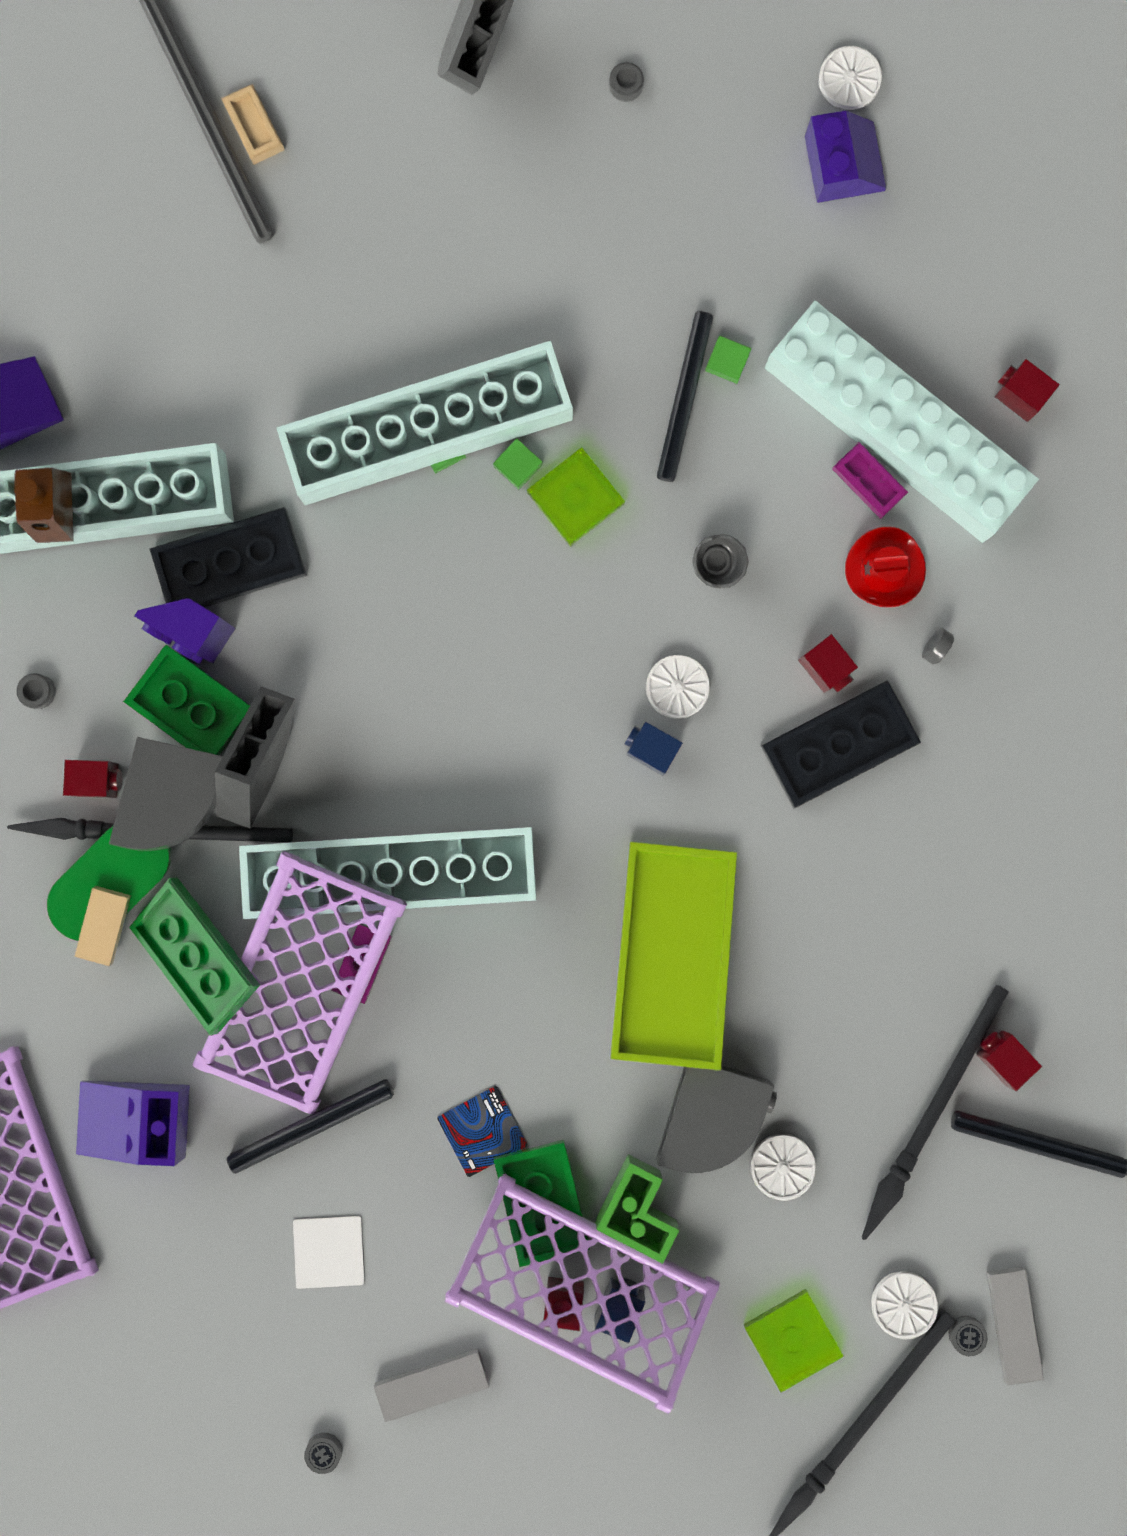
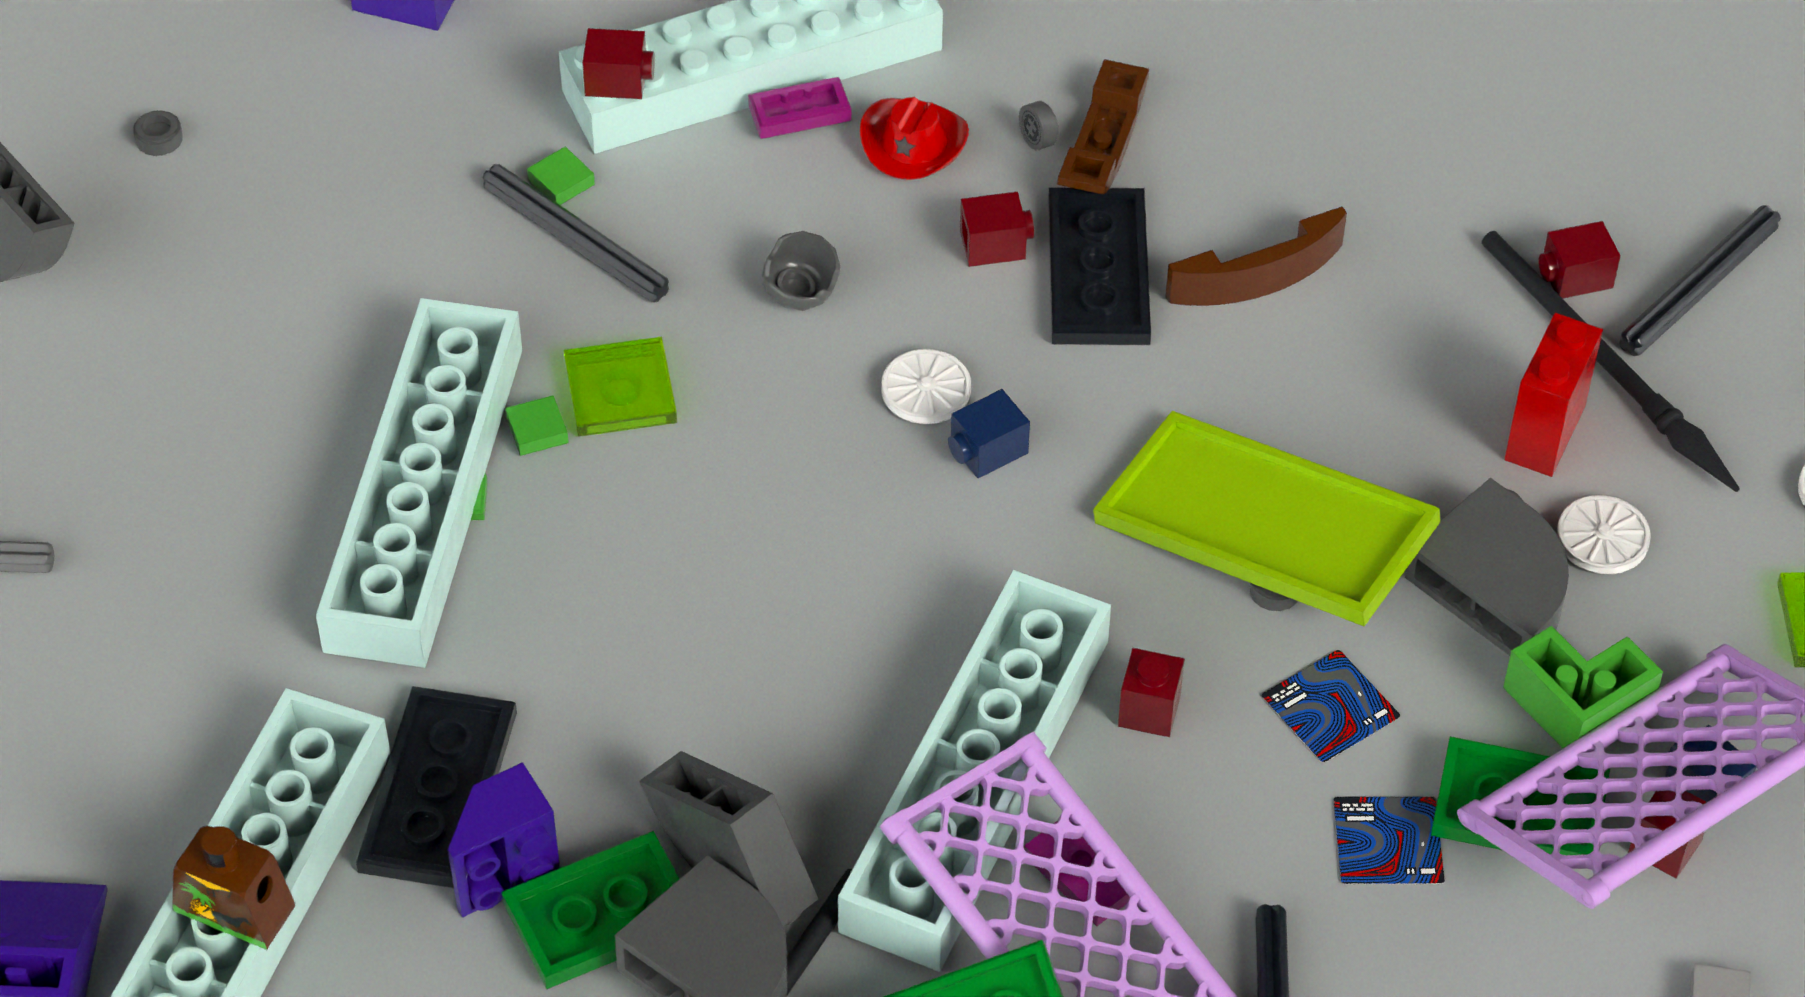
camera: 65 degrees left, 35 degrees down
(502, 947) = (1151, 692): none -> dark red brick
(563, 1053) = (1330, 706): none -> sticker
(808, 349) = (616, 63): none -> dark red brick
(858, 823) = (1207, 281): none -> reddish brown slope
(863, 1100) = (1553, 394): none -> red brick
(955, 692) = (1106, 128): none -> reddish brown slope

